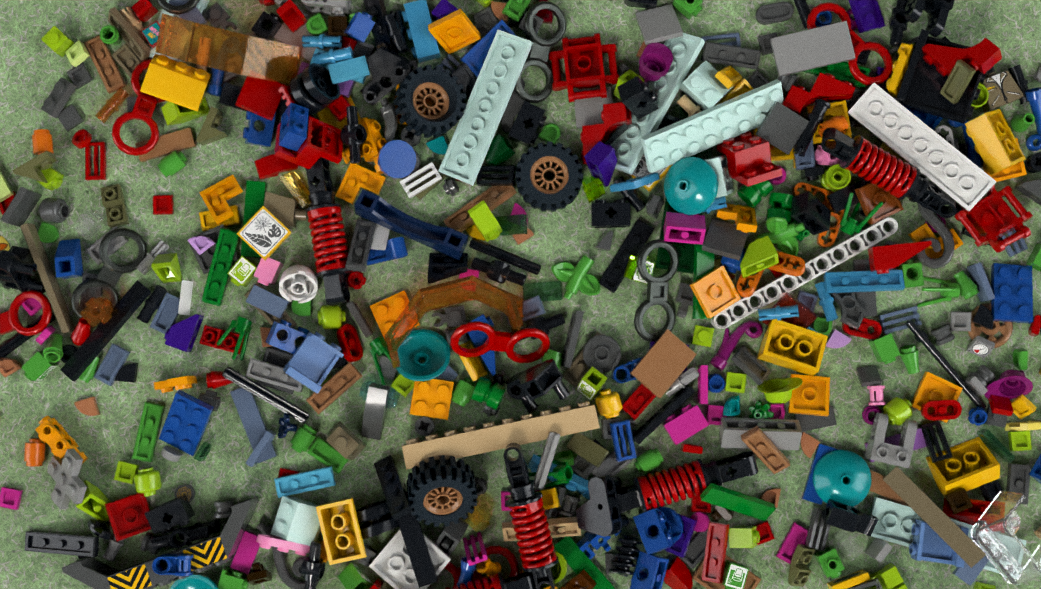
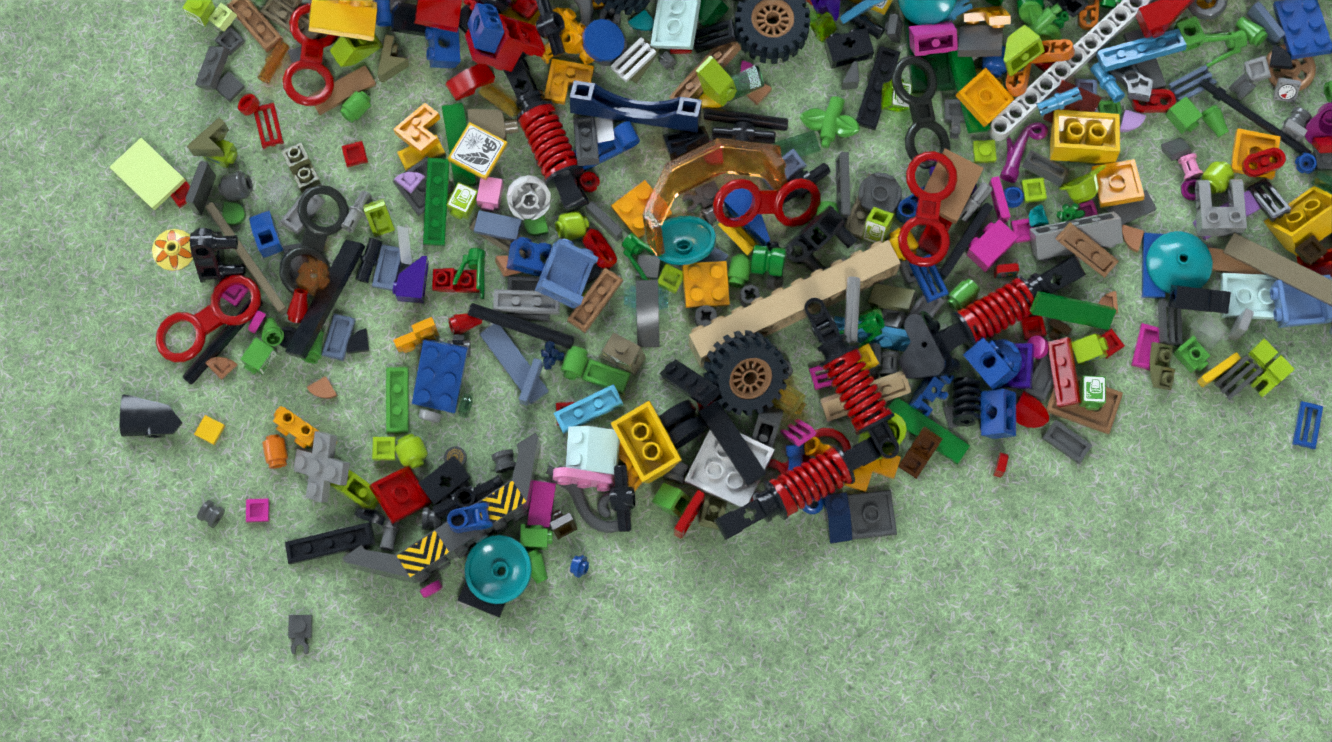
camera: 15 degrees left, 10 degrees down
(42, 141) = (204, 115): orange brick -> none
(466, 411) = (747, 290): none -> dark grey bush
(637, 382) = (927, 209): none -> red bar

